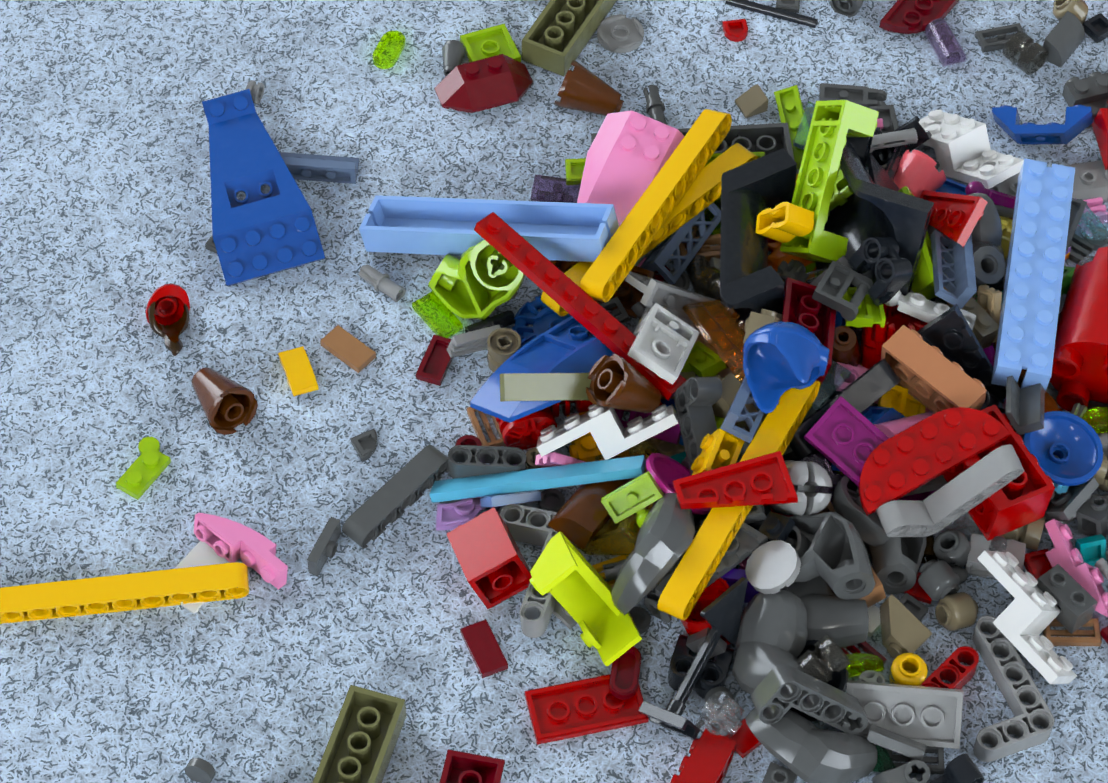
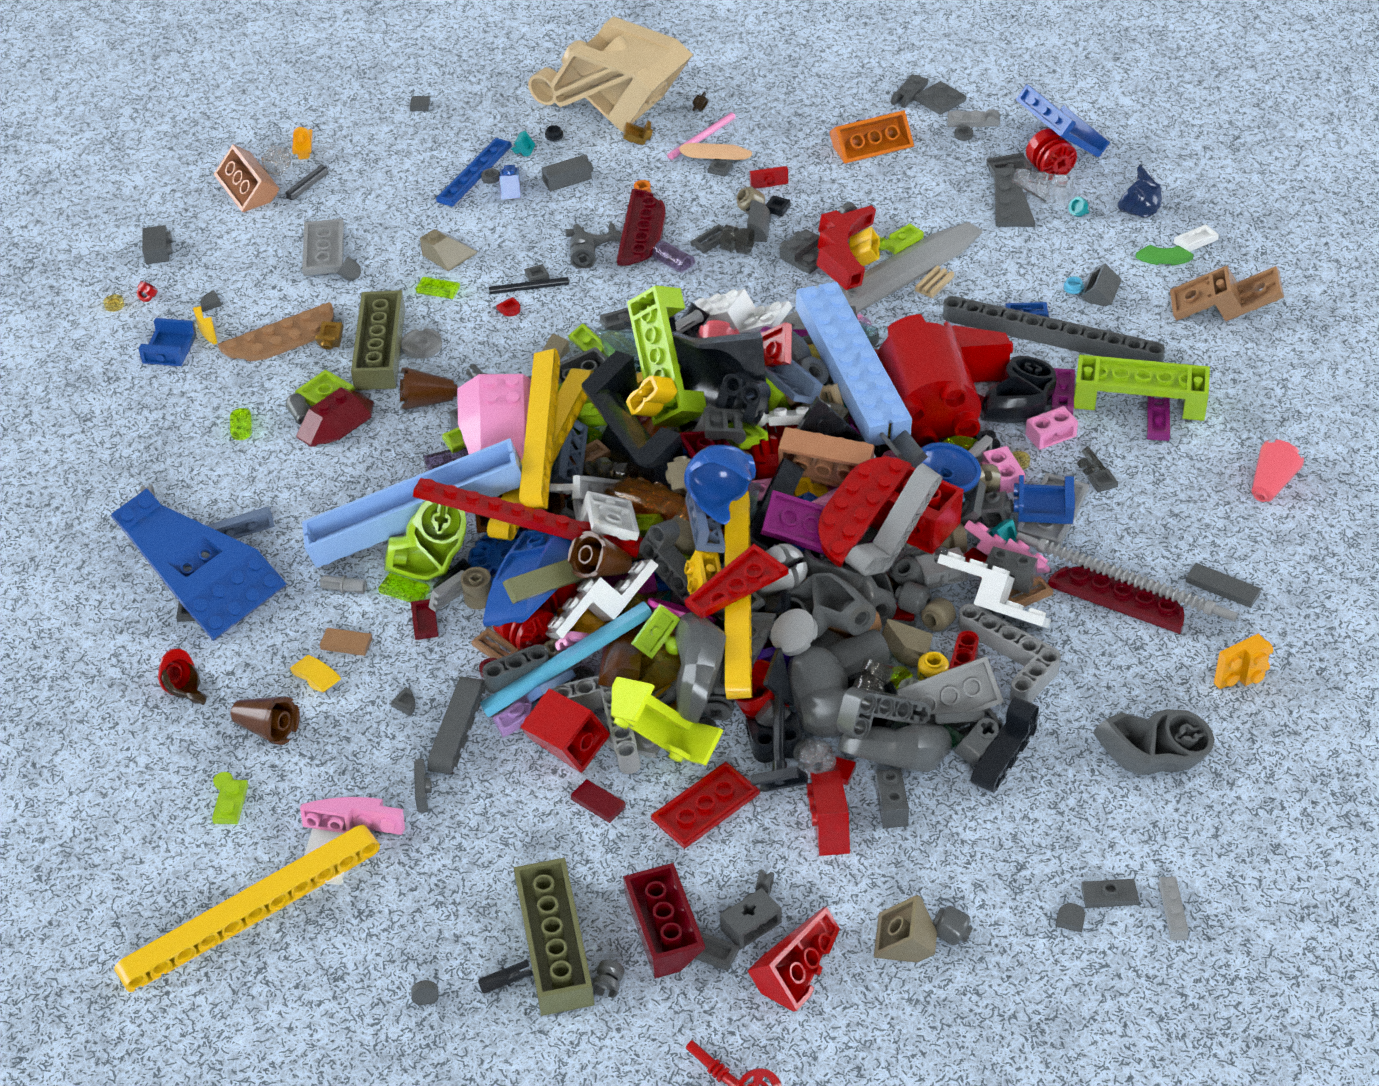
camera: 25 degrees left, 10 degrees down
(625, 674) = (722, 766): dark red tile -> none
(1076, 120) = (791, 282): blue slope -> none

